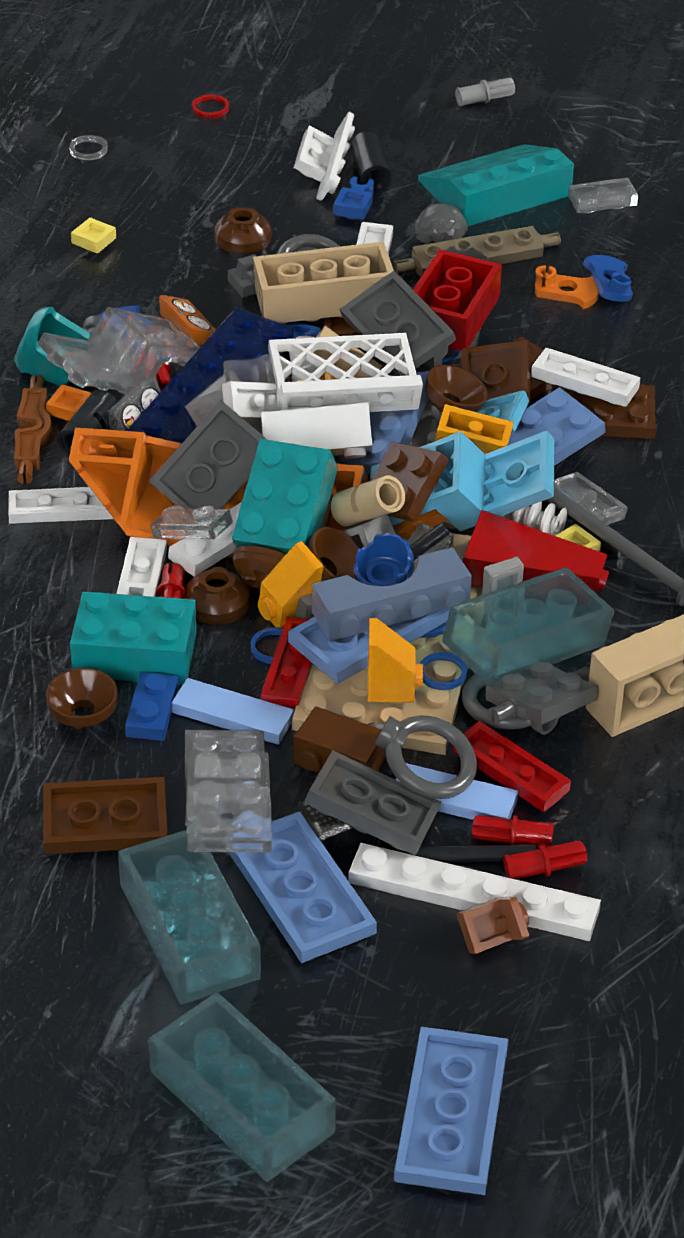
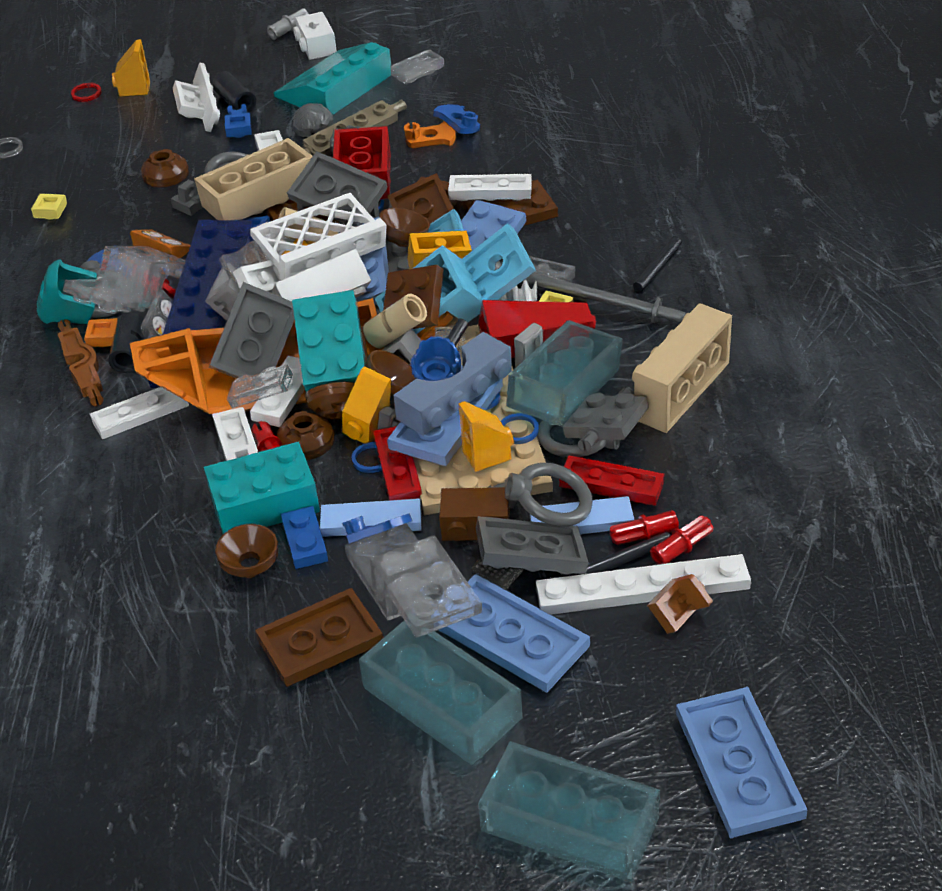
camera: 20 degrees left, 0 degrees up
(206, 719) = (357, 530): none -> blue piece
(268, 100) = (132, 72): none -> light orange slope
(504, 117) = (315, 35): none -> white brick

